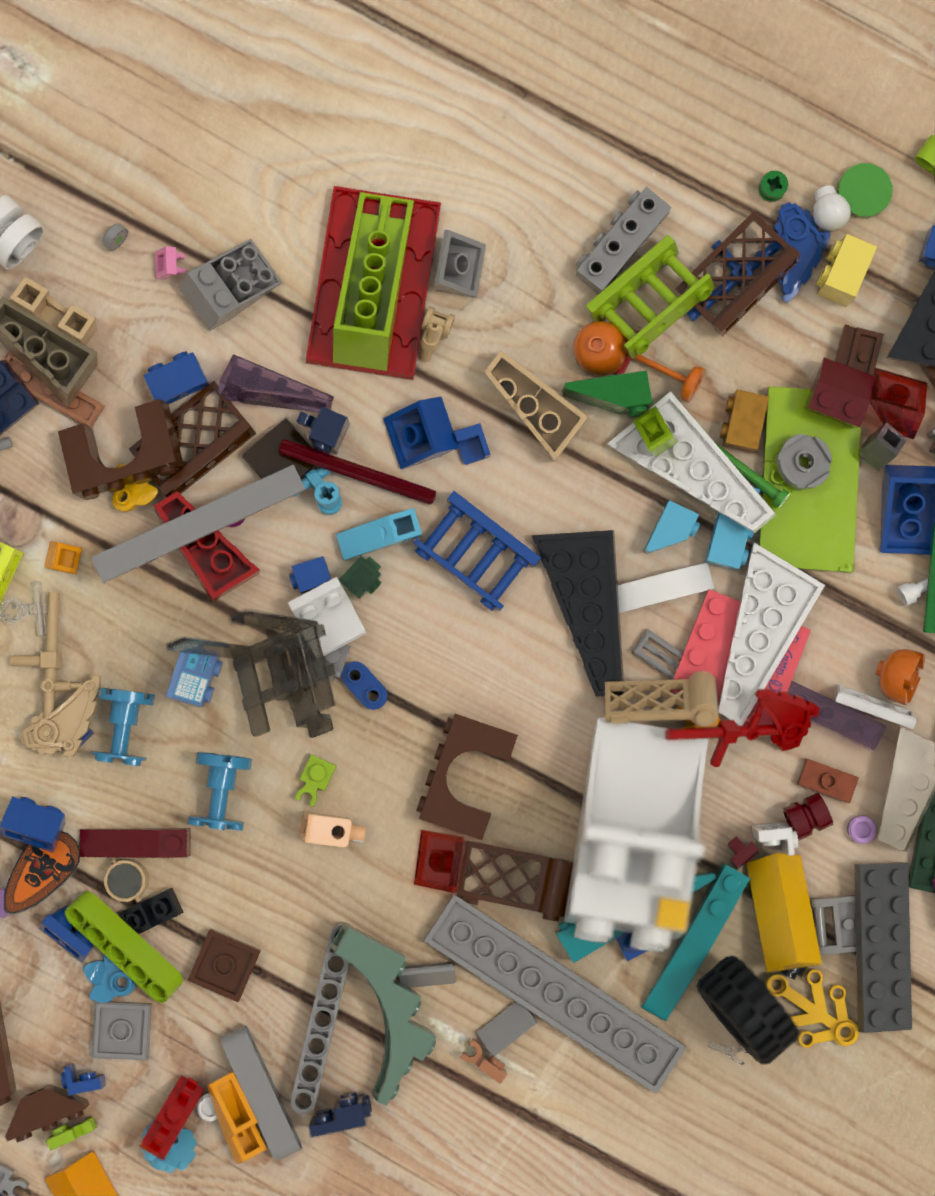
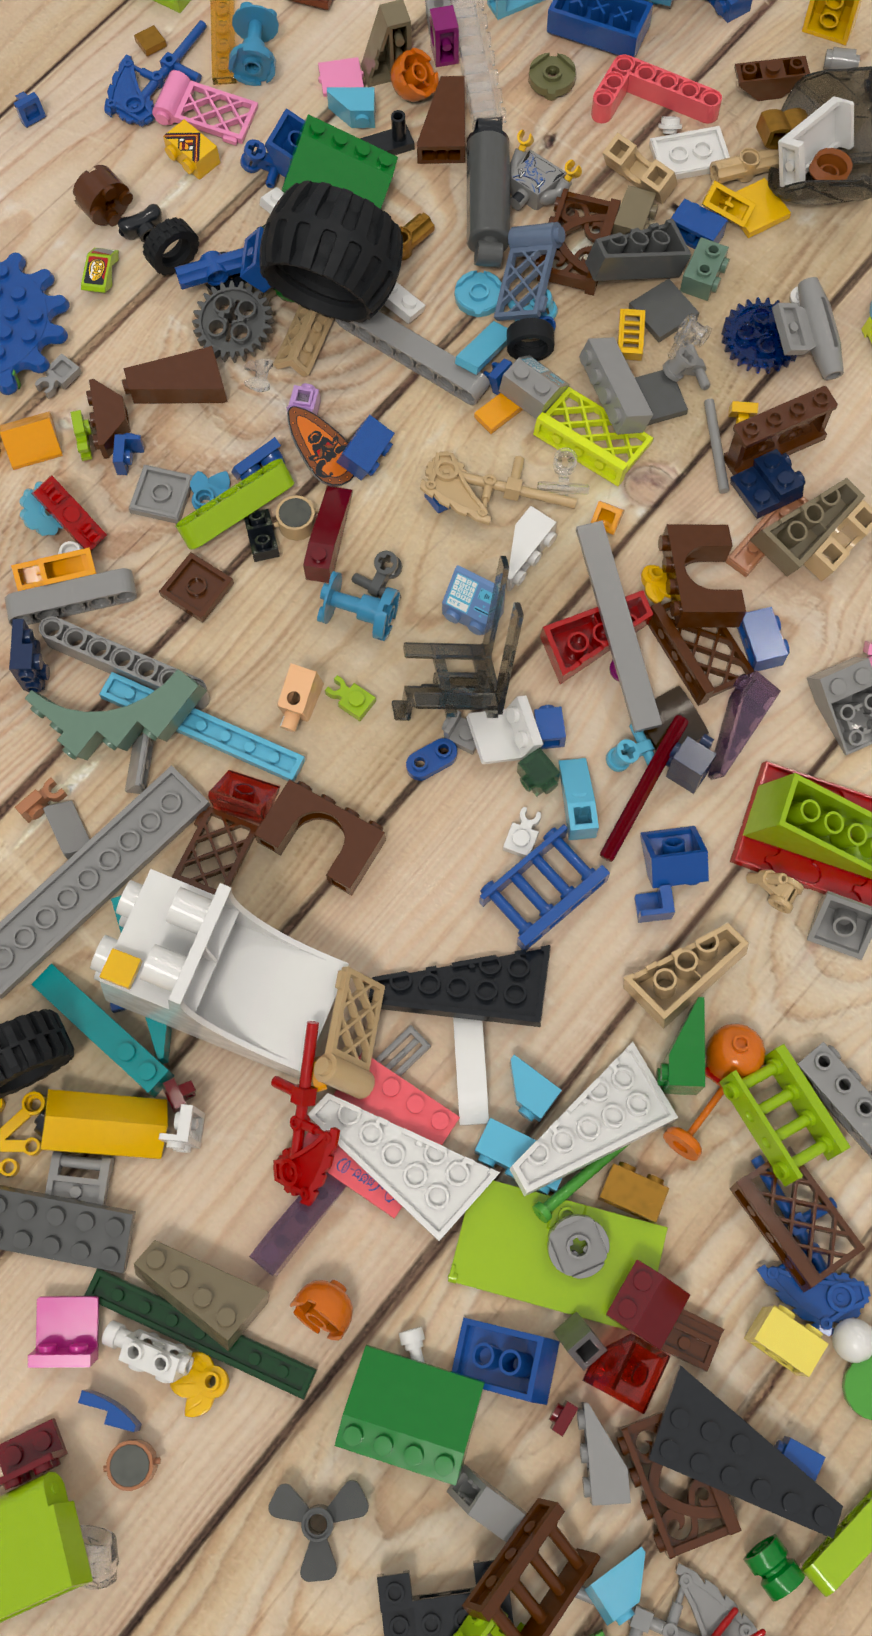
camera: 110 degrees right, 15 degrees down
(108, 633) = (531, 536): none -> white slope
(123, 715) = (448, 535): dark azure piece -> none
(188, 779) = (377, 586): none -> dark grey piece
(377, 914) = (214, 732): none -> medium azure plate
(428, 582) = (522, 837): none -> white plate
(655, 431) = (635, 1085): lime slope -> none
(808, 816) = (198, 1172): dark red wheel -> none
(827, 780) = (231, 1204): copper plate -> none
(861, 829) = (171, 1231): lavender tile -> none
(875, 706) = (296, 1272): white tile -> none

